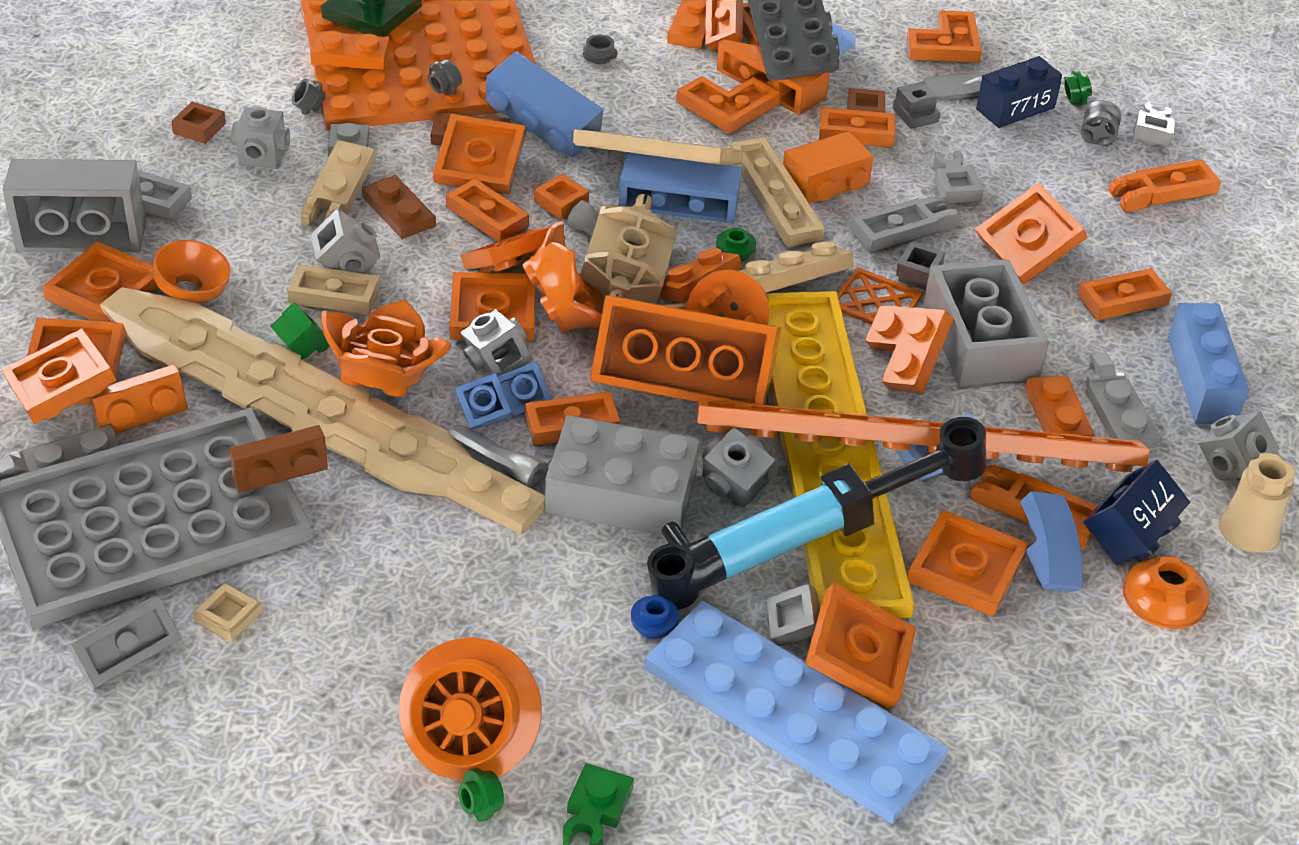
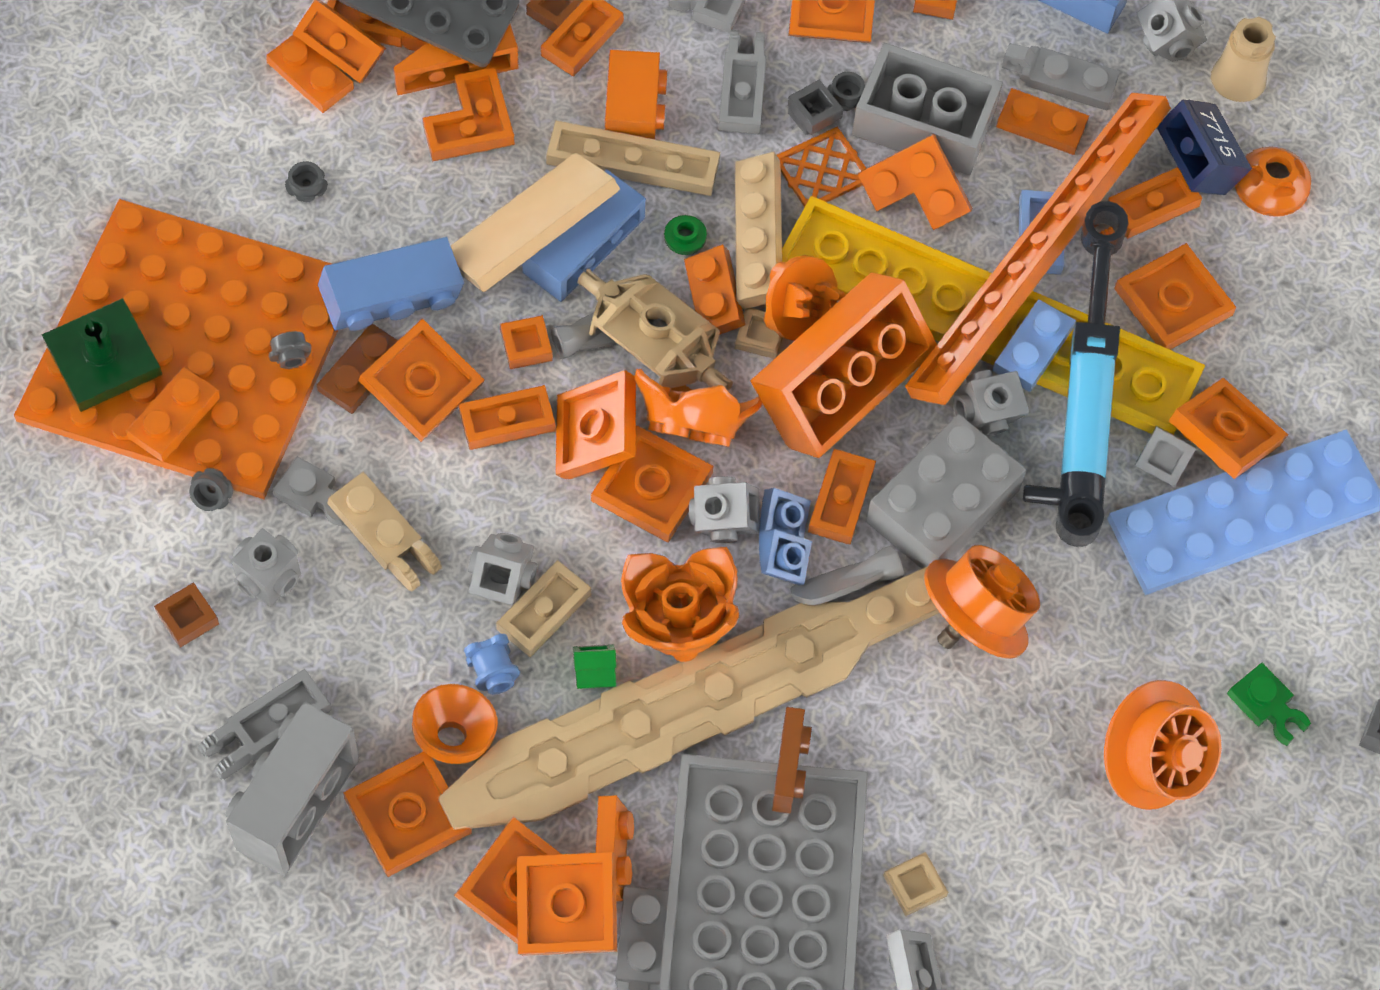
camera: 60 degrees left, 20 degrees up
(262, 277) = (492, 664): none -> medium blue brick
(398, 206) = (443, 492): dark orange plate -> none
(481, 794) = (1227, 781): green plate -> none
(523, 526) = (983, 601): none -> orange piece
(654, 625) = (1102, 568): blue plate -> none
(801, 470) = (1035, 344): none -> light blue plate
(1057, 547) = (1210, 233): medium blue slope -> none

